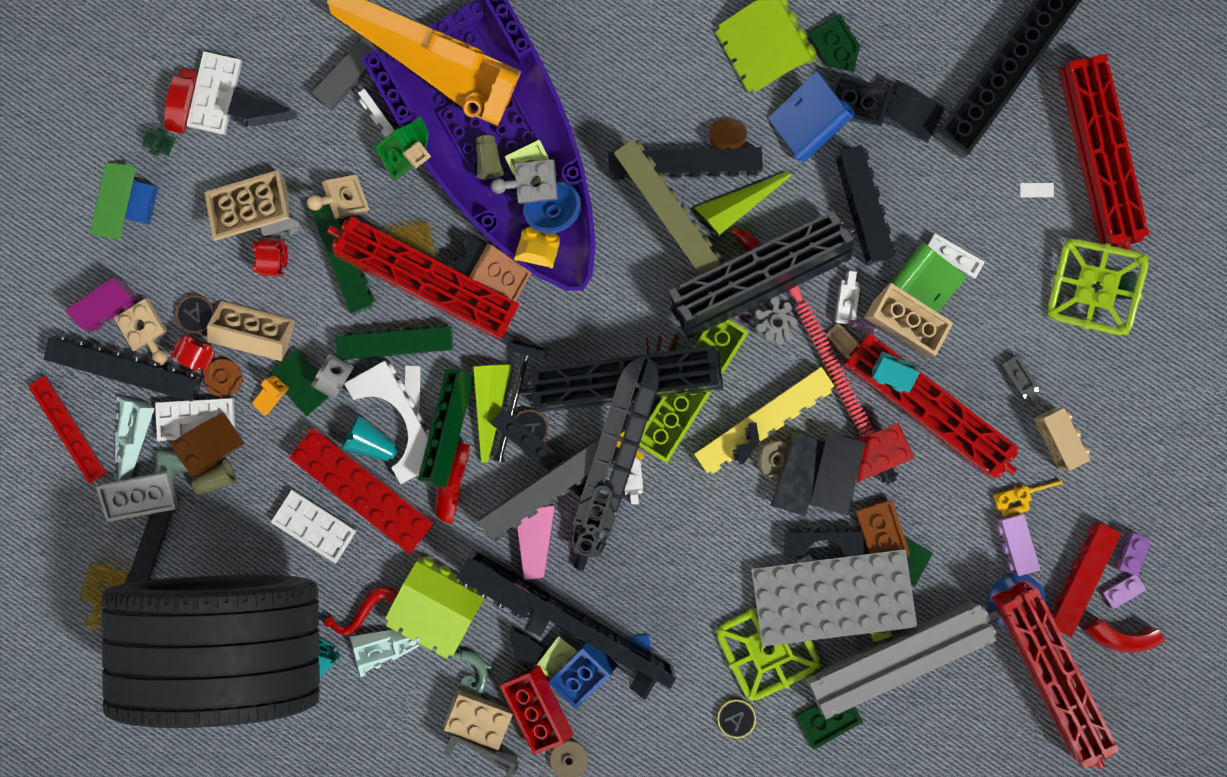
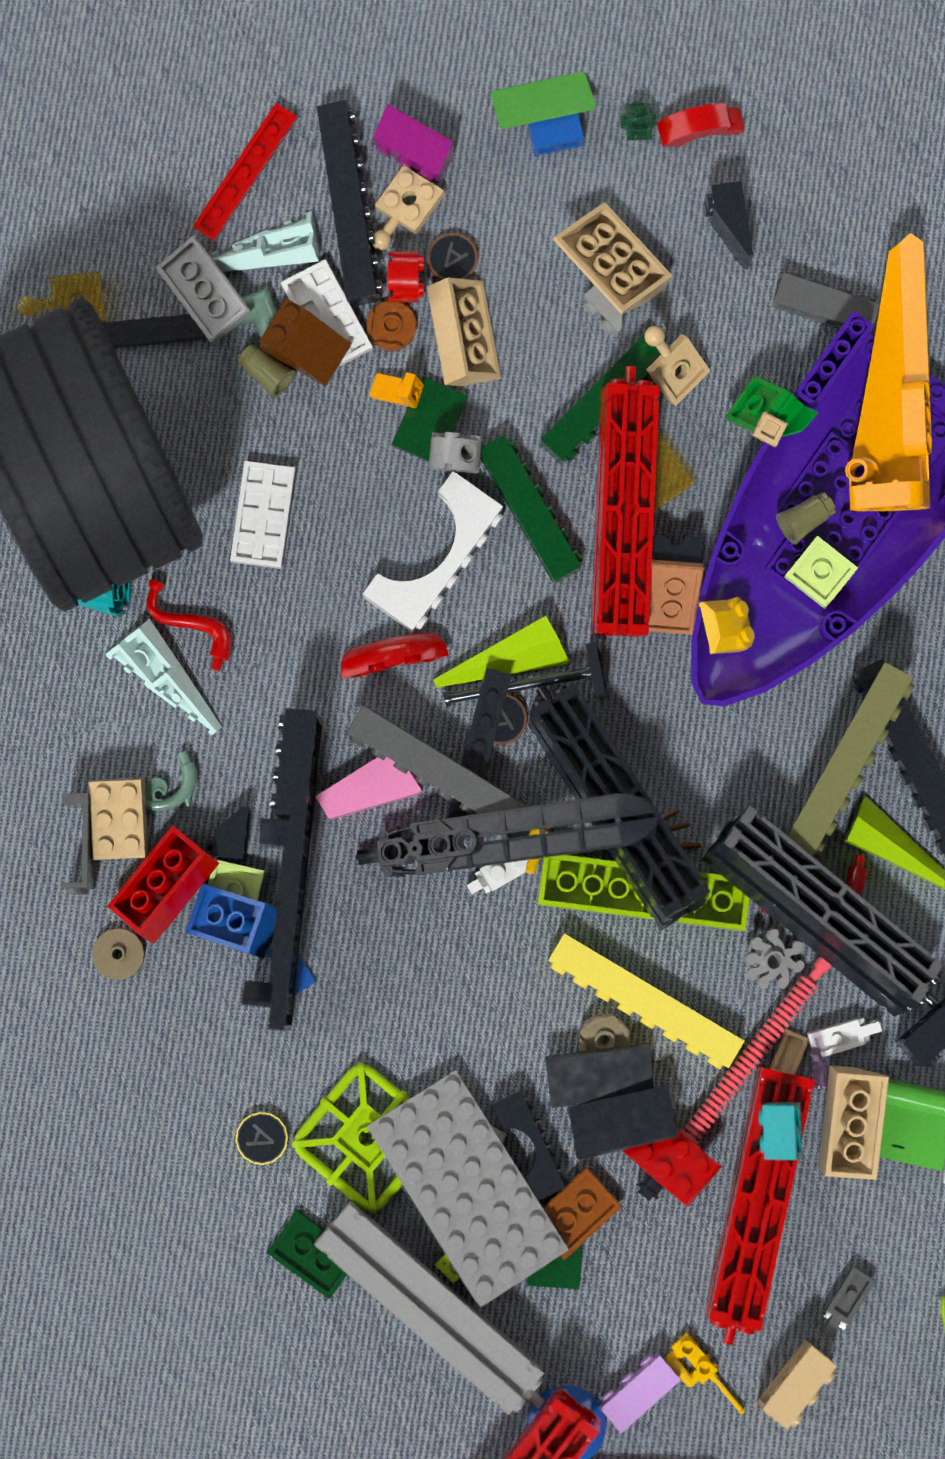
camera: 65 degrees right, 5 degrees down
(213, 93) = (727, 158): white plate -> none
(270, 257) = (563, 314): red brick -> none
(362, 490) = (333, 552): red brick -> none
(368, 441) = (396, 532): teal cone -> none
(377, 115) = (793, 363): white plate -> none
(412, 385) = (488, 554): white sticker -> none
(434, 607) = (231, 703): lime hinge -> none
(445, 428) = (456, 616): dark green brick -> none
(524, 174) = (806, 569): light grey plate -> none
(541, 214) = (790, 613): blue dish -> none
(743, 451) = (597, 991): black slope -> none

